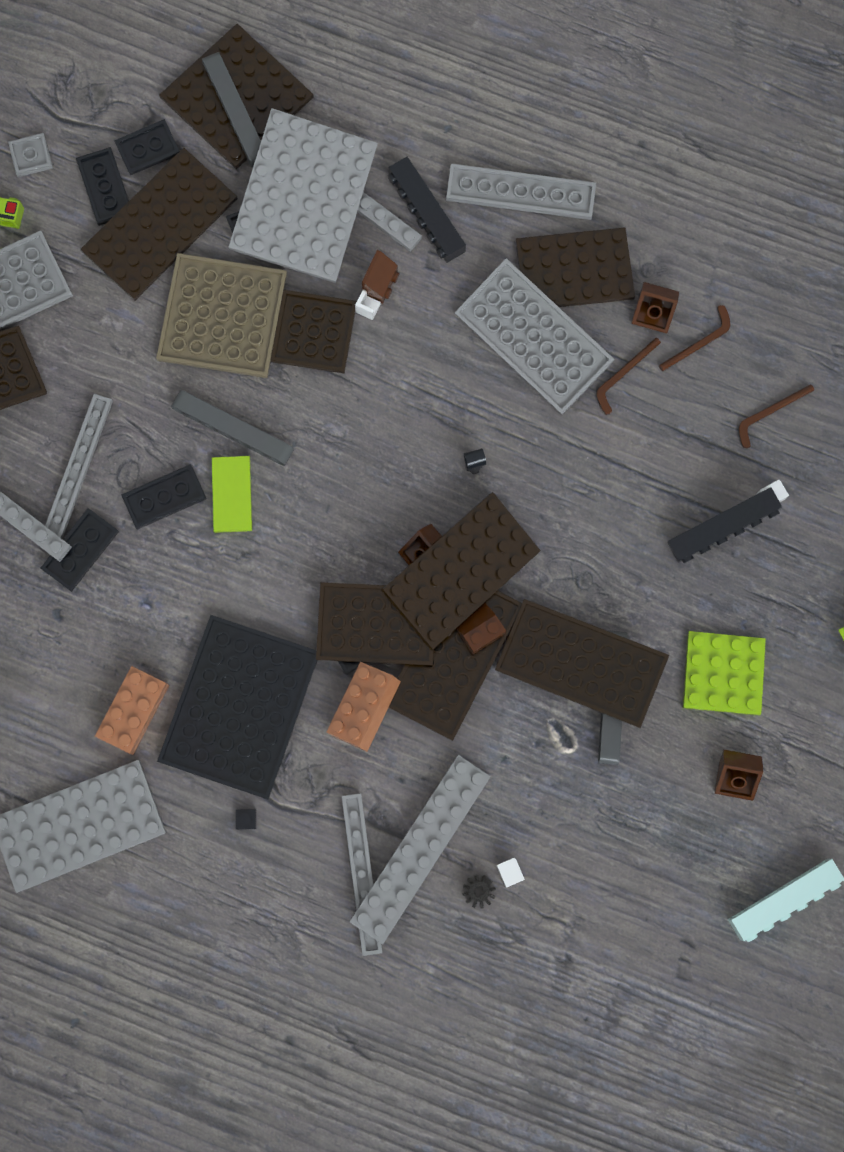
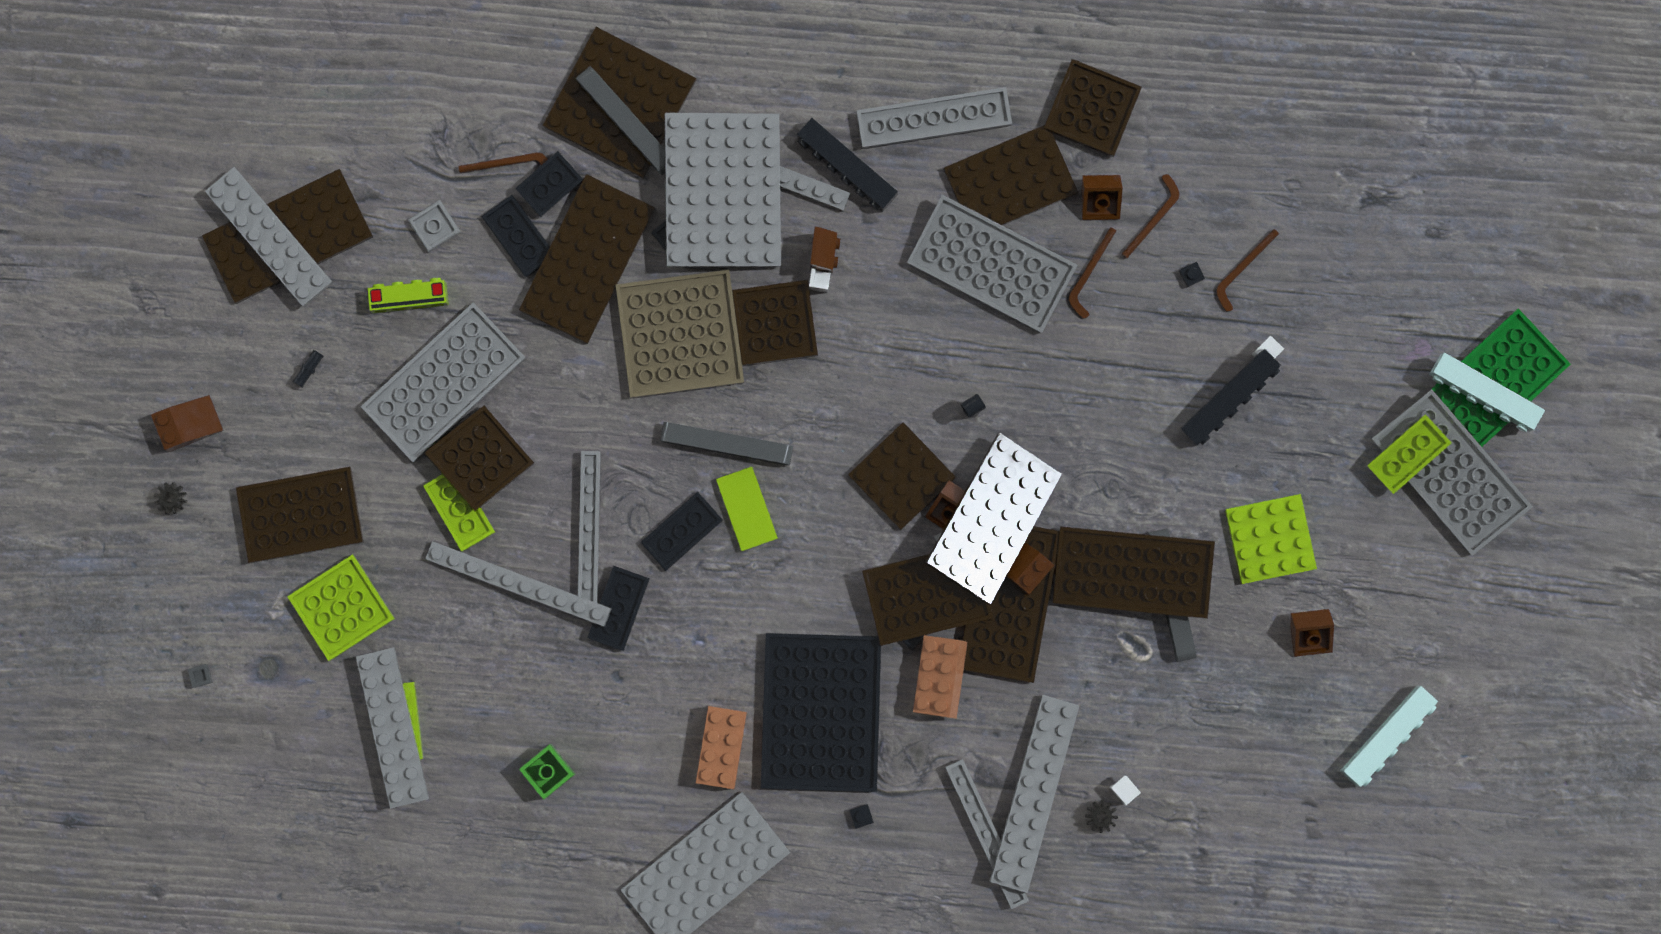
camera: 20 degrees left, 5 degrees up
(111, 117) = (503, 162): none -> reddish brown piece
(387, 507) = (901, 476): none -> dark brown plate
(671, 225) = (1092, 107): none -> dark brown plate
(720, 403) = (1191, 274): none -> black plate

